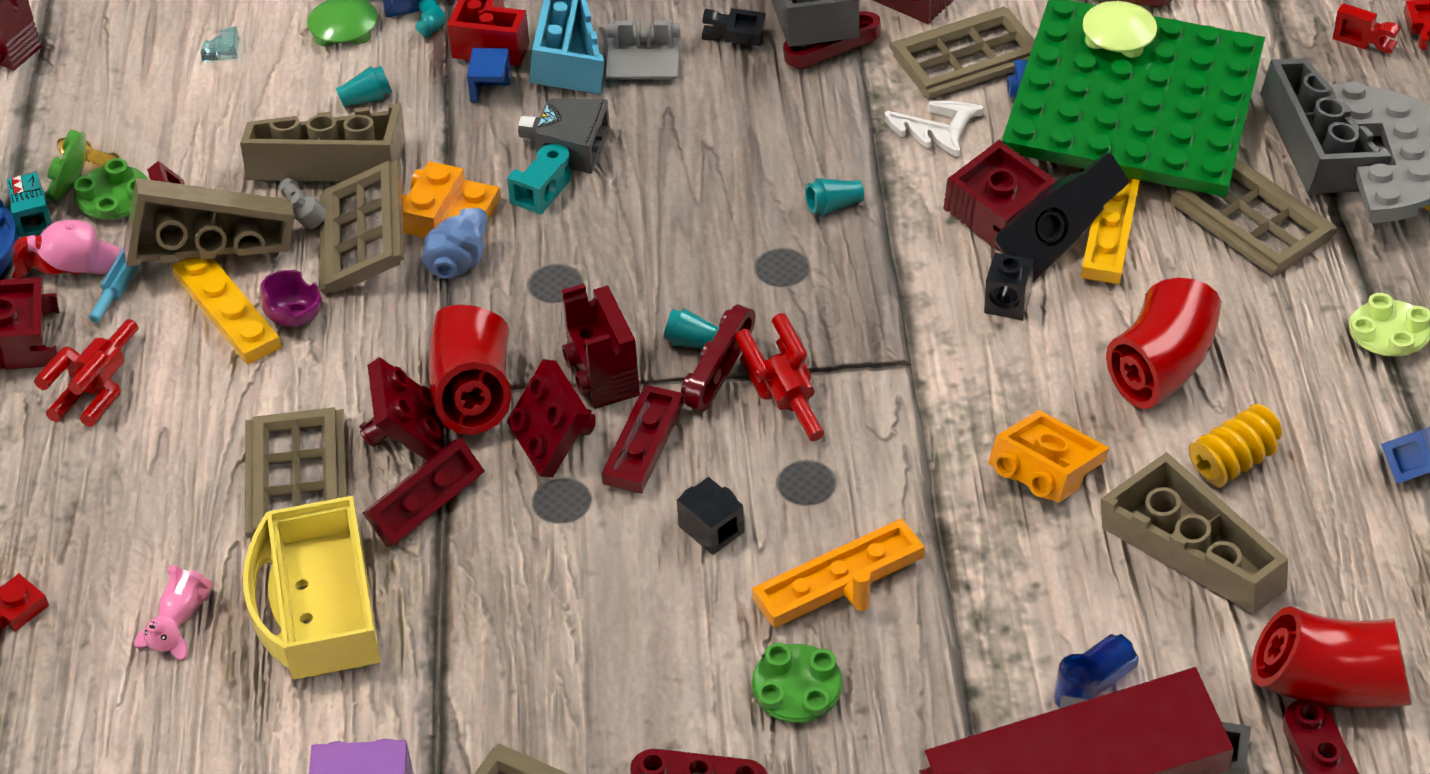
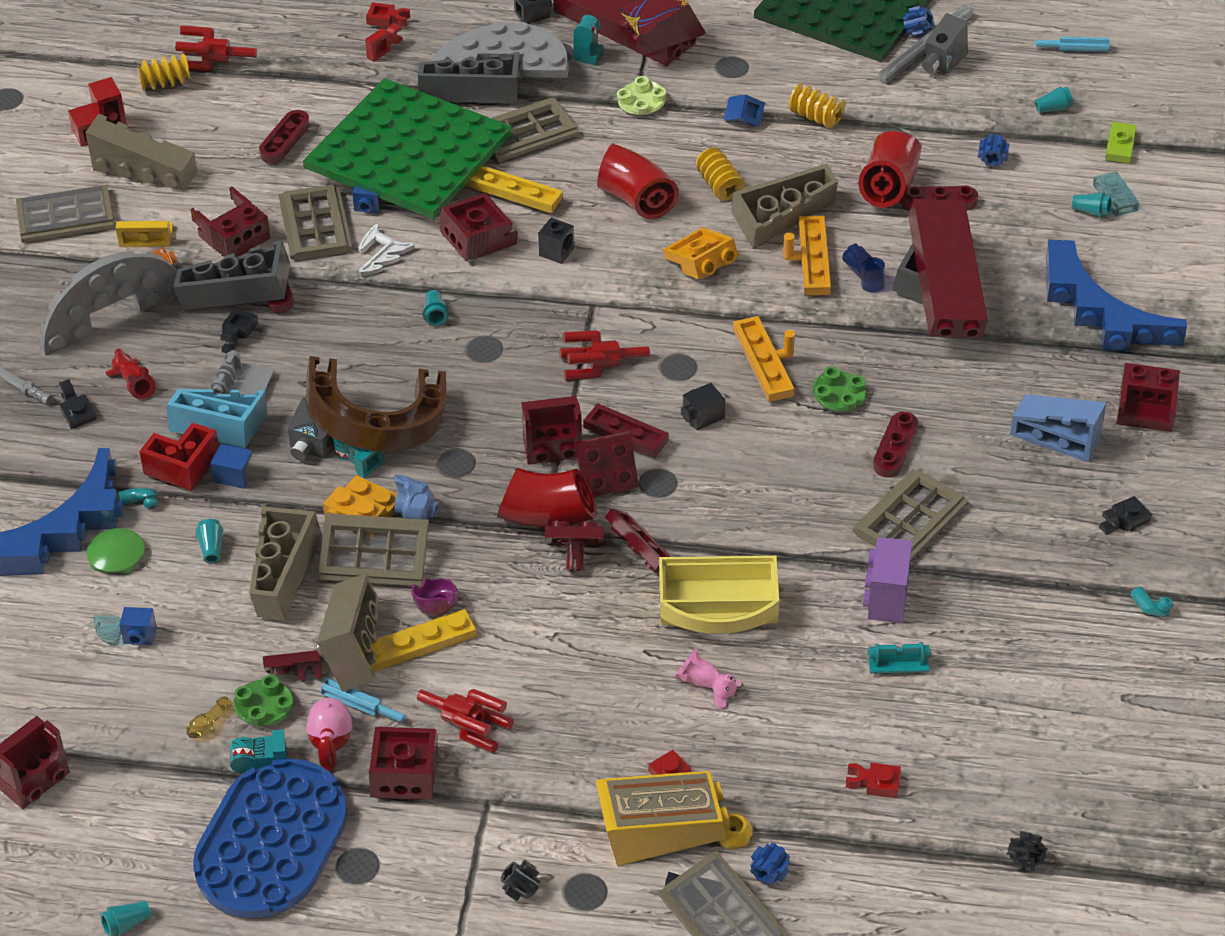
camera: 80 degrees left, 0 degrees up
(66, 170) = (237, 716): bright green dish -> none
(216, 61) = (138, 626): none -> blue plate
(293, 461) = (596, 611): dark tan piece -> none
(307, 209) = (302, 596): light grey piece -> none
(570, 202) = (371, 428): none -> reddish brown piece
(688, 329) = (539, 390): teal cone -> none
(717, 359) = (573, 379): dark red plate -> none
(1061, 214) = (507, 198): black piece -> none
(1100, 598) = (812, 254): none -> light orange plate
(1119, 27) = (358, 131): yellowish green dish -> none

